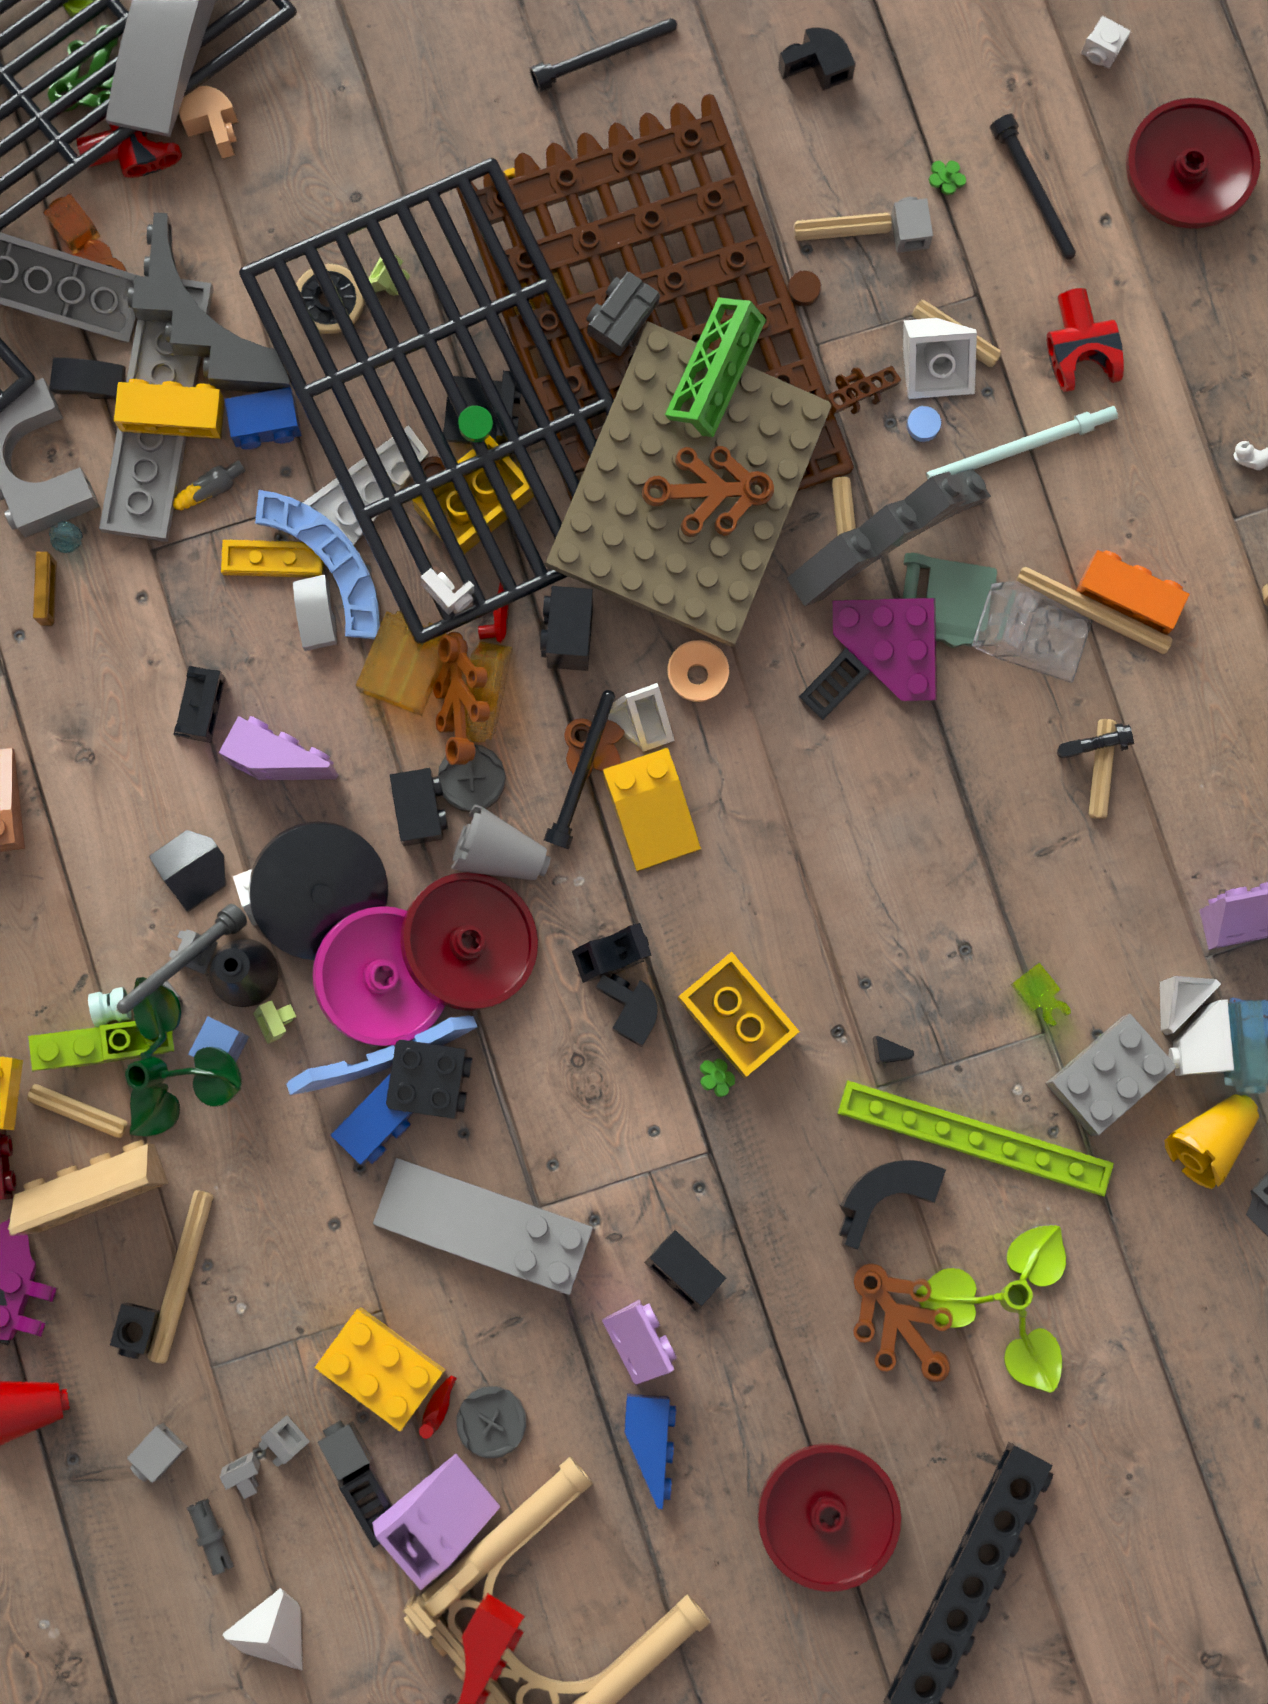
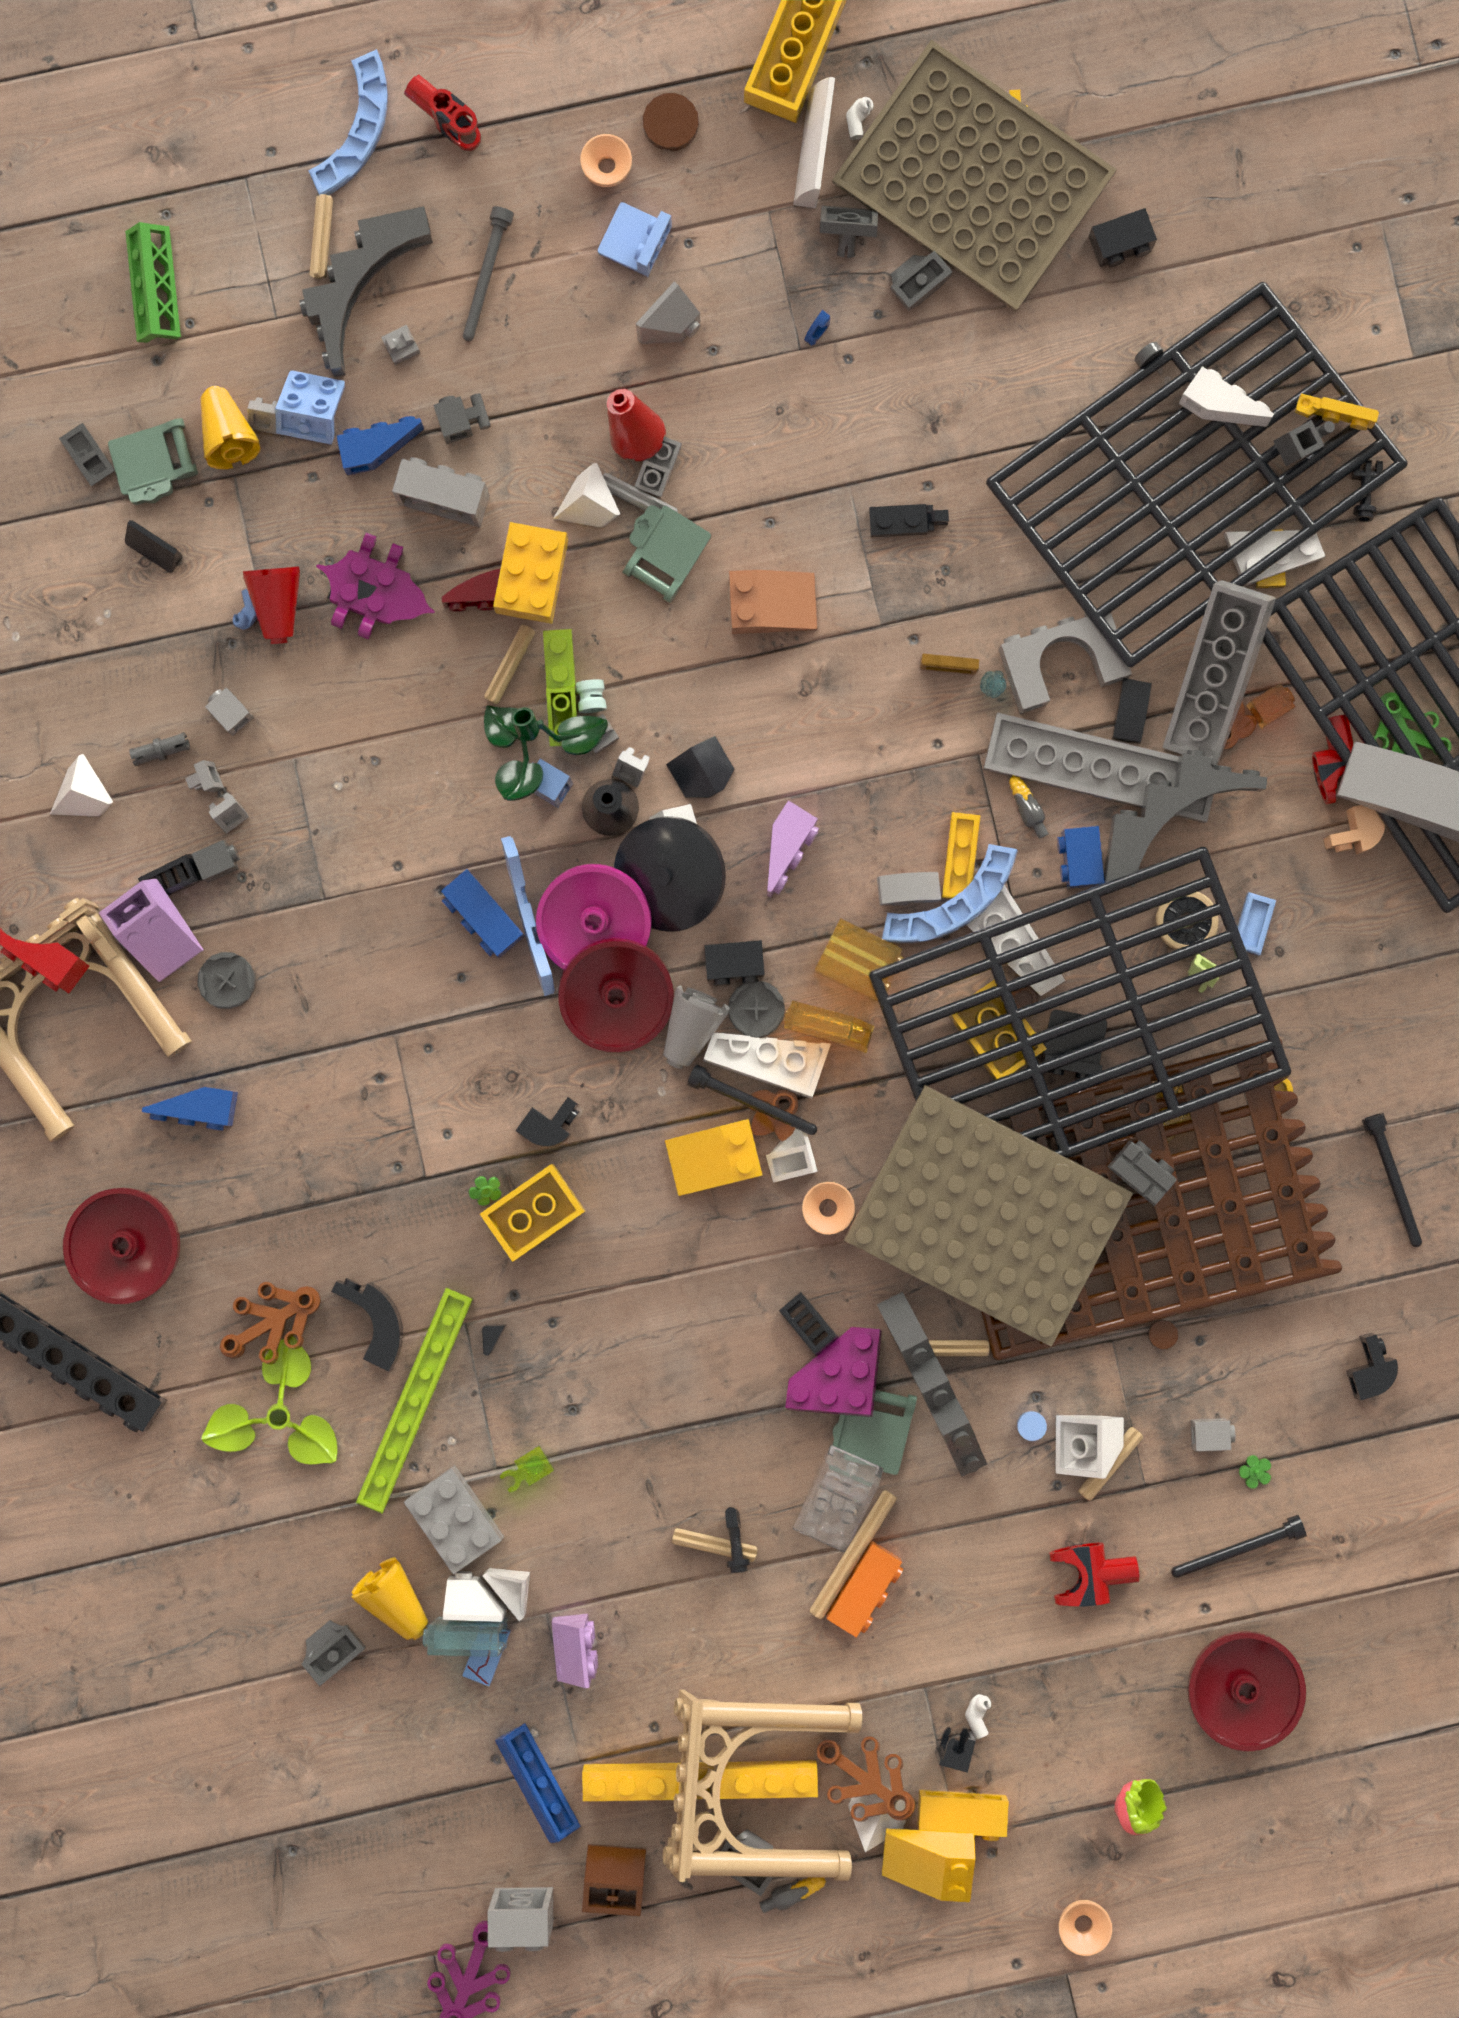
camera: 100 degrees right, 5 degrees up
(34, 1442) = (247, 615): none -> medium blue arm
(87, 1189) = (442, 669): tan slope -> none
(144, 1316) = (339, 705): black brick -> none
(169, 409) = (1094, 779): yellow brick -> none
(180, 1276) = (367, 739): tan axle -> none
(200, 704) = (838, 786): black hinge -> none
(228, 921) = (652, 798): dark grey piece -> none
(273, 1021) = (567, 827): yellowish green tile -> none
(311, 220) = (1255, 921): none -> light blue tile
(380, 1368) = (276, 894): yellow brick -> none
(428, 1079) = (504, 952): black bracket -> none
(437, 1408) = (241, 937): red bar -> none
(441, 590) = (912, 996): white bracket -> none
(453, 654) = (819, 1002): dark orange plant -> none
(475, 423) = (1053, 1037): green tile -> none
(483, 1226) = (382, 987): light grey slope -> none
(500, 624) = (882, 1042): red bar -> none
(533, 744) = (776, 1062): none -> white wing
(569, 624) = (873, 1101): black brick -> none
(612, 953) = (594, 1112): black brick -> none
(638, 1343) = (274, 1105): lavender slope -> none
(685, 1270) = (330, 1149): black hinge -> none
(712, 489) = (976, 1235): dark orange plant -> none
(723, 364) = (1087, 1258): bright green fence -> none
(842, 226) = (1216, 1374): tan axle -> none
(860, 383) = (1060, 1360): reddish brown piece -> none
(1081, 424) = (1019, 1564): light aqua bar -> none
(1105, 42) = (1369, 1628): white bracket -> none

